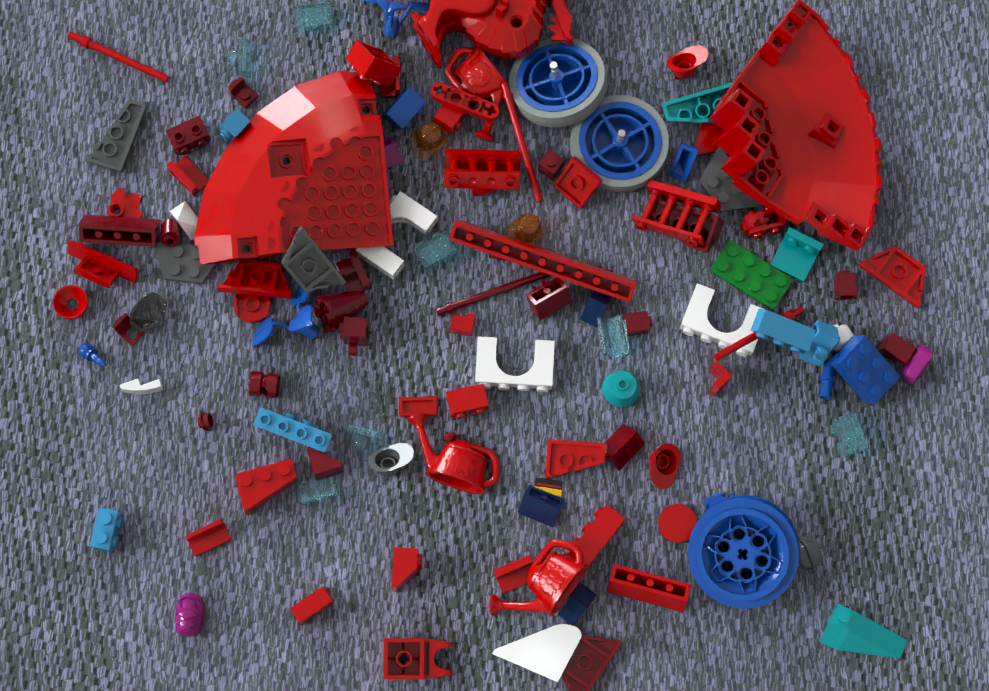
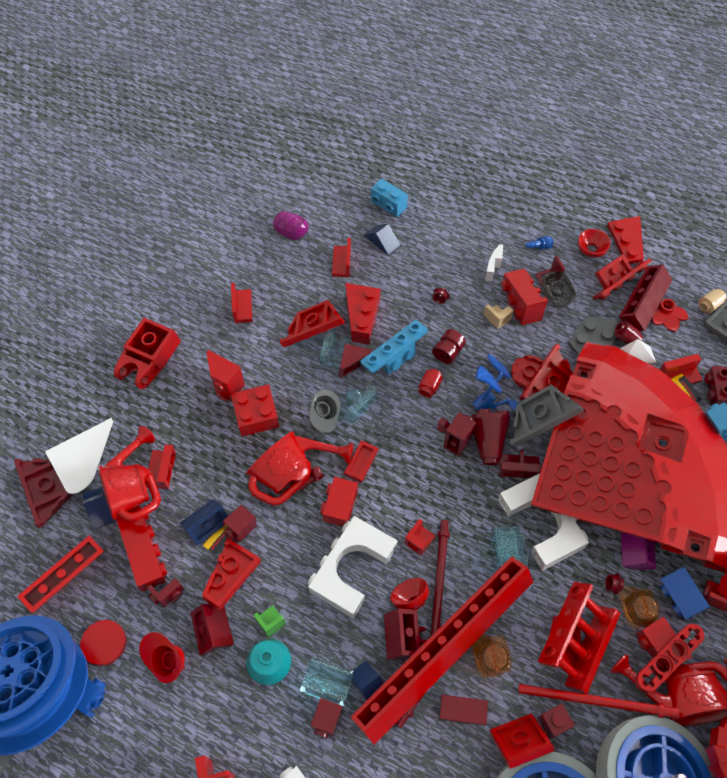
camera: 120 degrees right, 15 degrees down
(44, 274) = (628, 238): none -> red wing
(90, 172) = (712, 300): none -> tan brick
(160, 513) = (383, 238): none -> slope
(171, 342) = (523, 296): none -> red wedge
(202, 166) = (687, 387): none -> sticker
(203, 358) = (498, 316): none -> tan panel
(302, 520) = (312, 322): none -> red wing
(310, 384) = (430, 383): none -> red brick
(420, 160) = (616, 581): none -> dark red plate
(420, 521) = (255, 410): none -> red brick
(511, 313) = (410, 594): none -> red piece
(530, 473) = (239, 524): none -> dark red brick
(576, 232) = (463, 710): none -> dark red tile
(591, 403) = (270, 621): none -> bright green panel
(613, 492) = (171, 592): none -> dark red bracket

